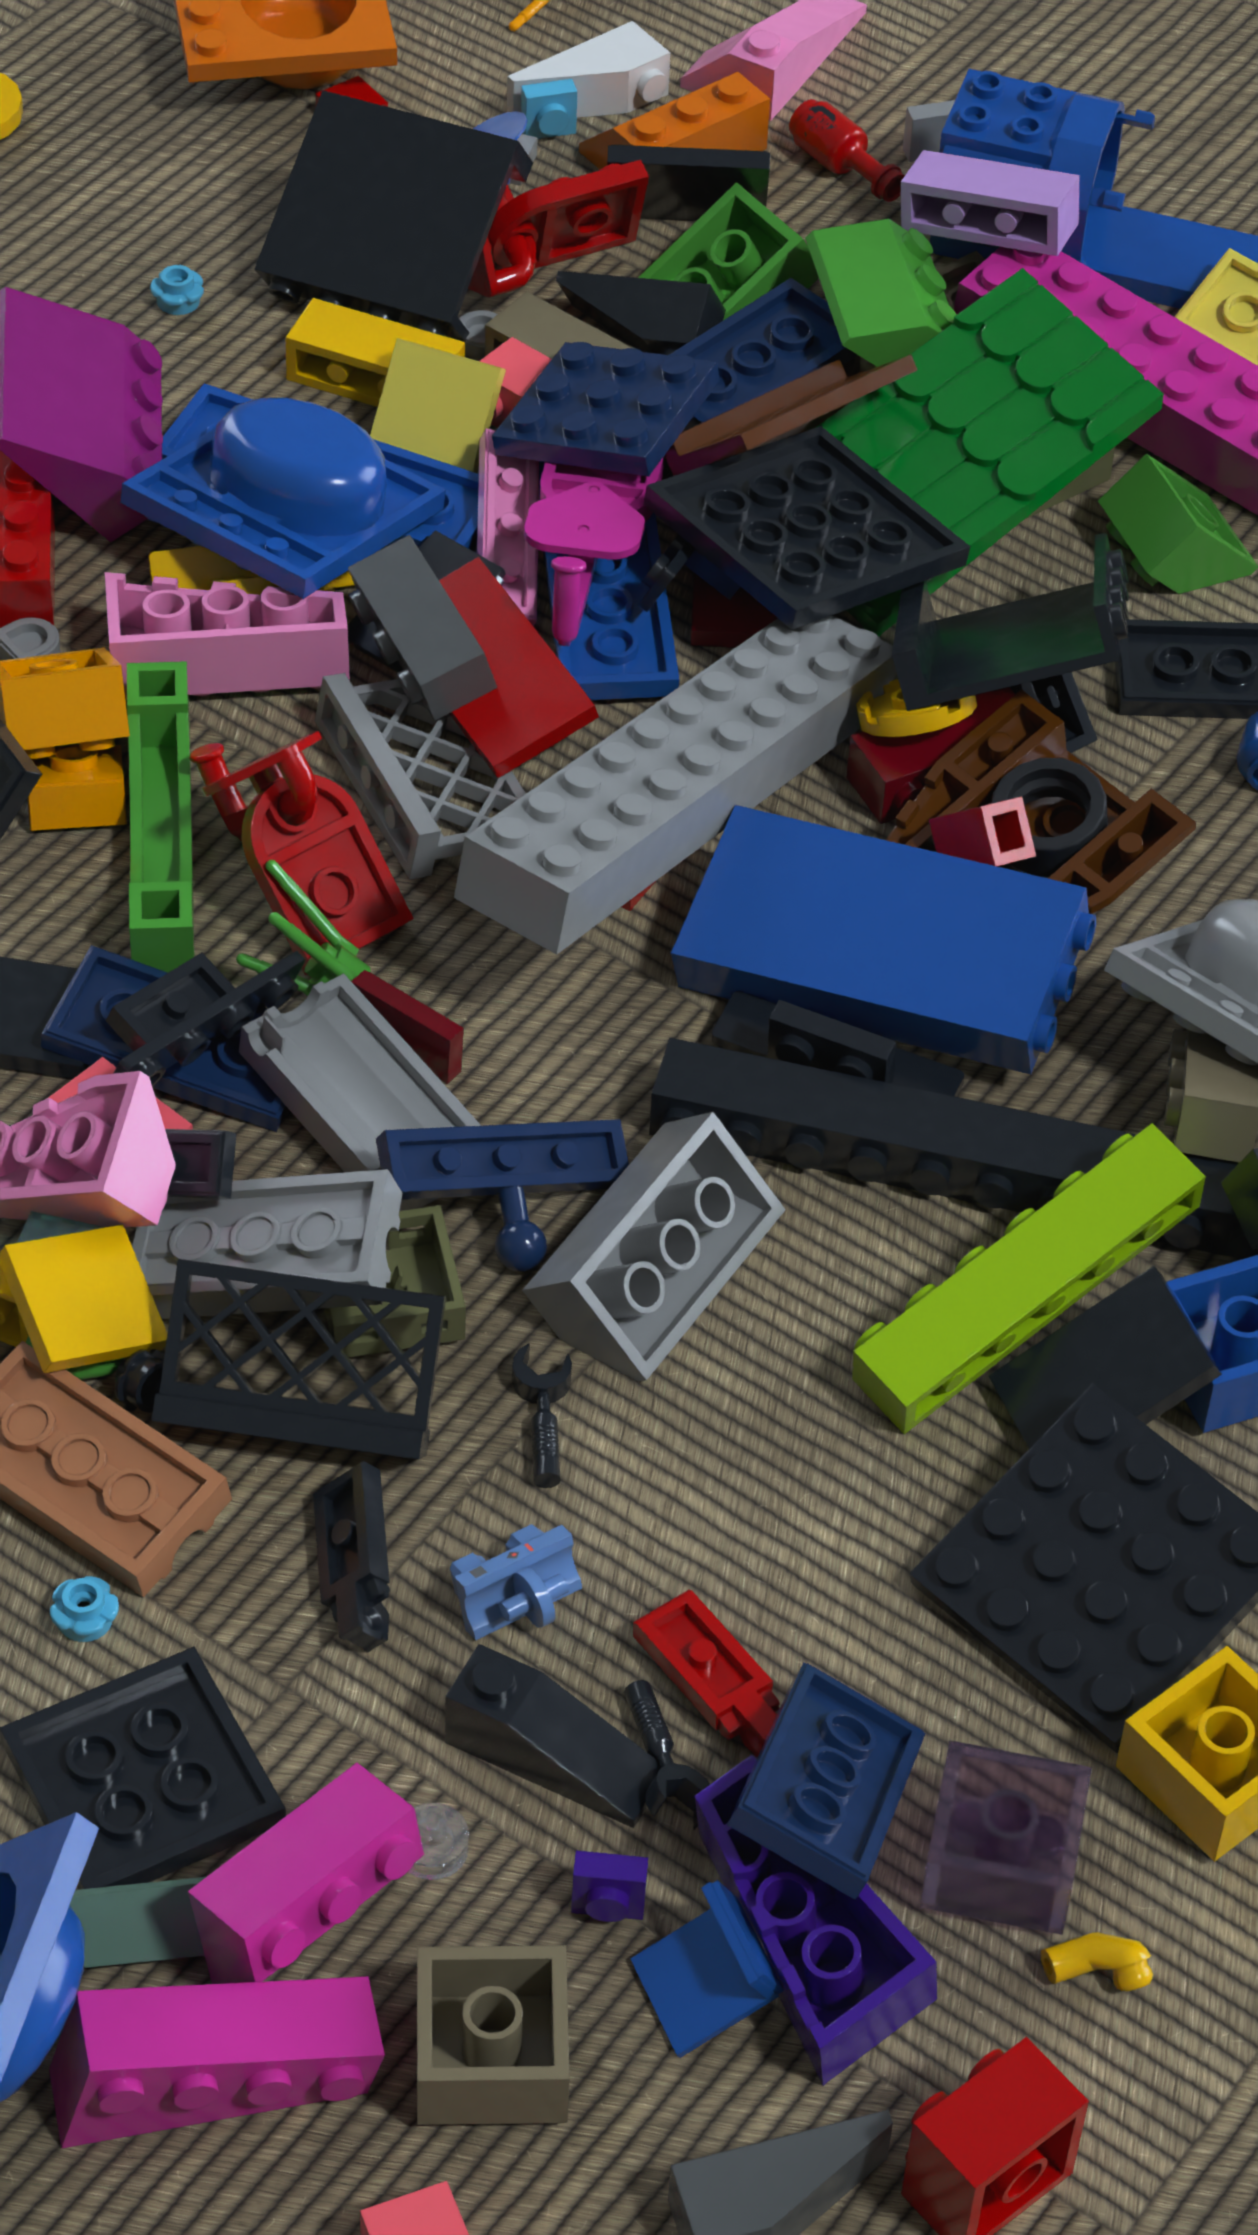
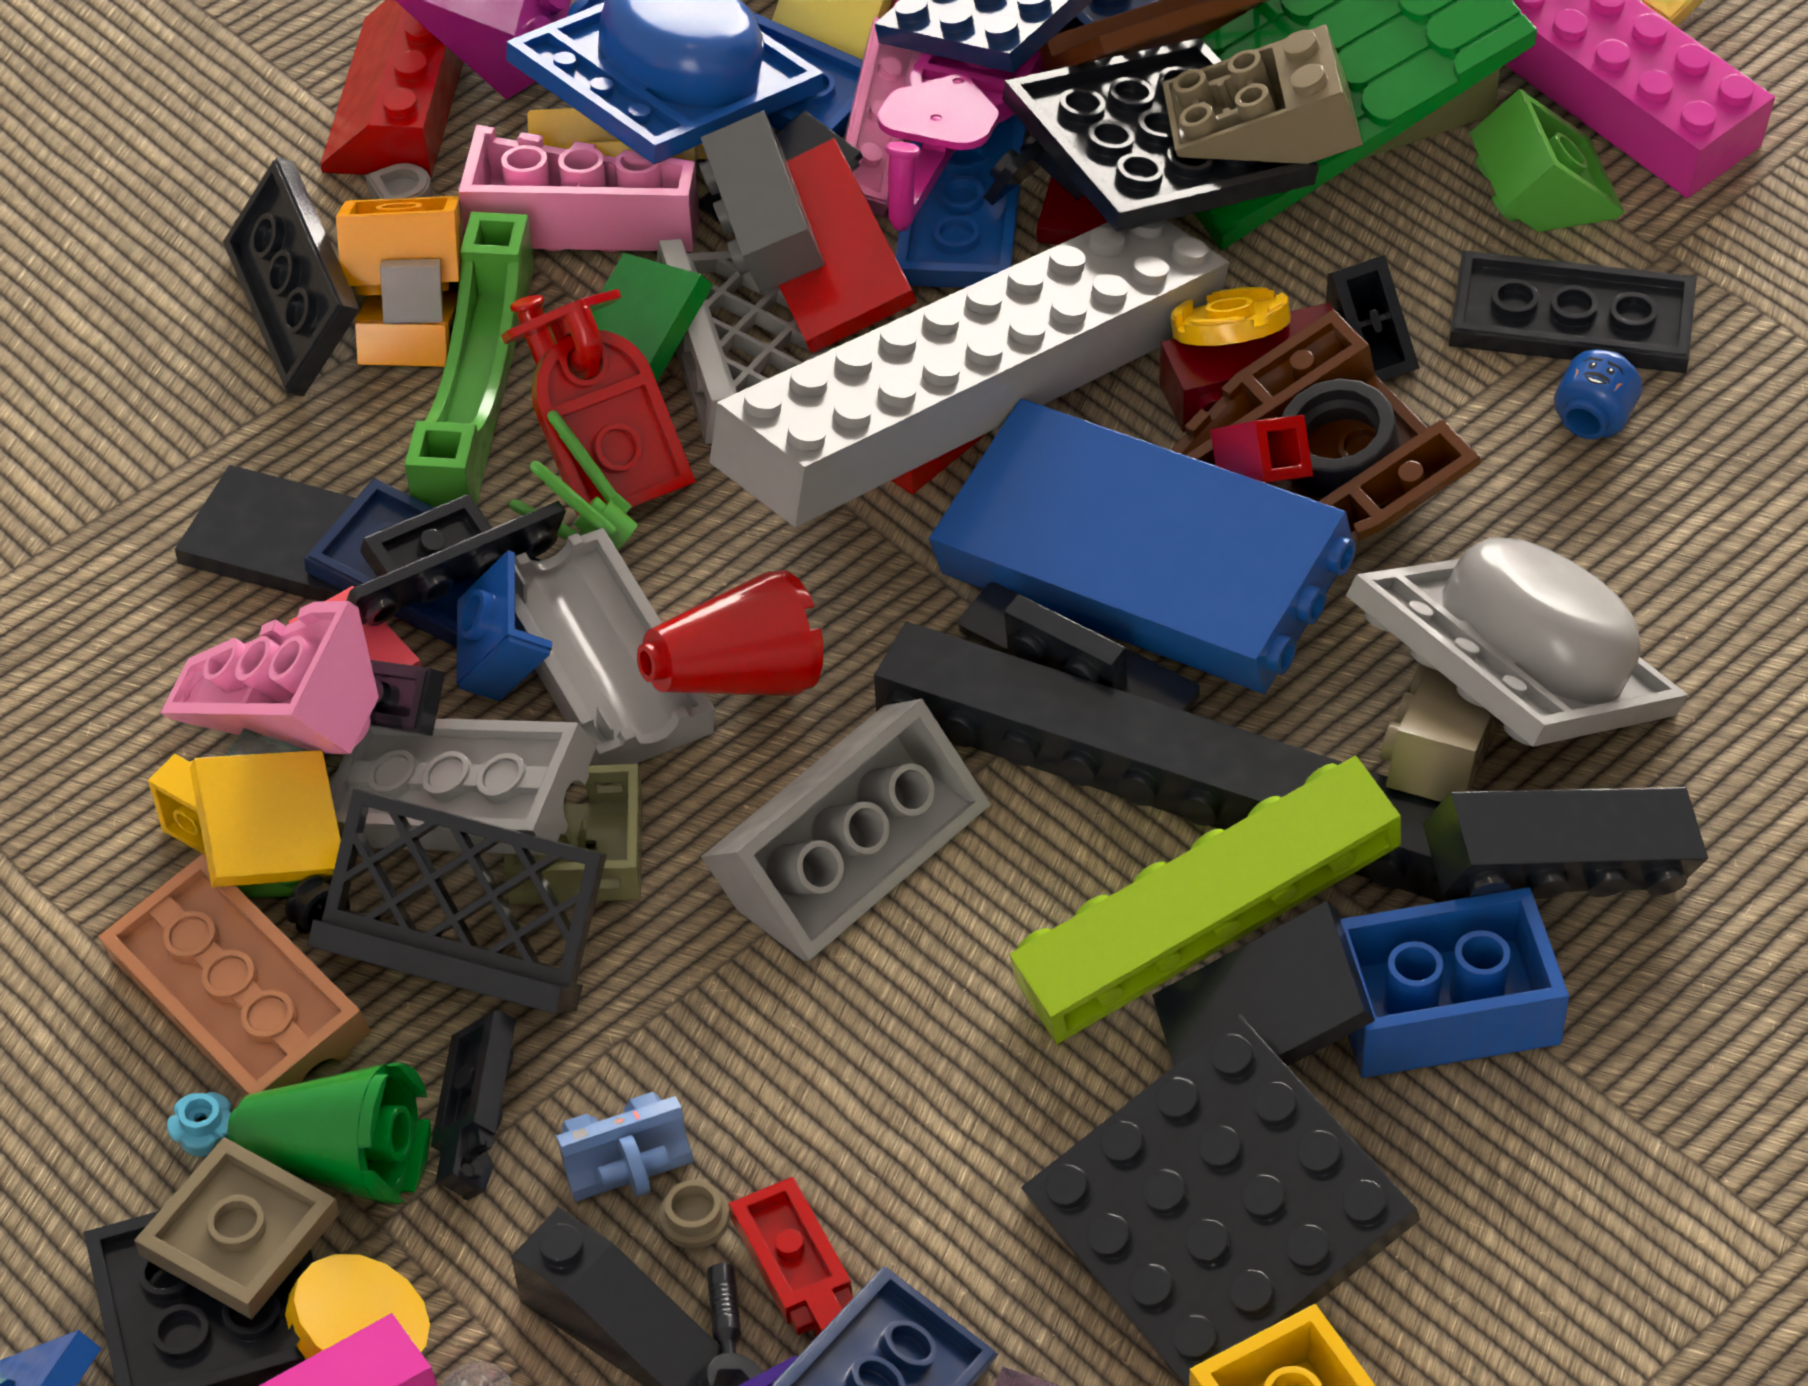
camera: 15 degrees right, 0 degrees up
(84, 750) = (411, 291): none -> light grey tile
(161, 1703) = (237, 1227): none -> dark tan plate
(230, 1599) = (342, 1131): none -> green cone
(257, 1089) = (489, 648): none -> blue piece
(286, 1763) = (348, 1294): none -> yellow tile
(350, 743) = (654, 306): none -> green tile
(427, 1032) = (661, 581): dark red tile -> none
(507, 1164) = (714, 729): dark blue plate -> none
(516, 1072) = (738, 642): none -> red cone
(542, 1391) = (702, 959): black piece -> none
(599, 1637) = (694, 1214): none -> dark tan plate
(911, 489) = (1266, 104): none -> dark tan slope
(1010, 640) = (1262, 272): black panel -> none

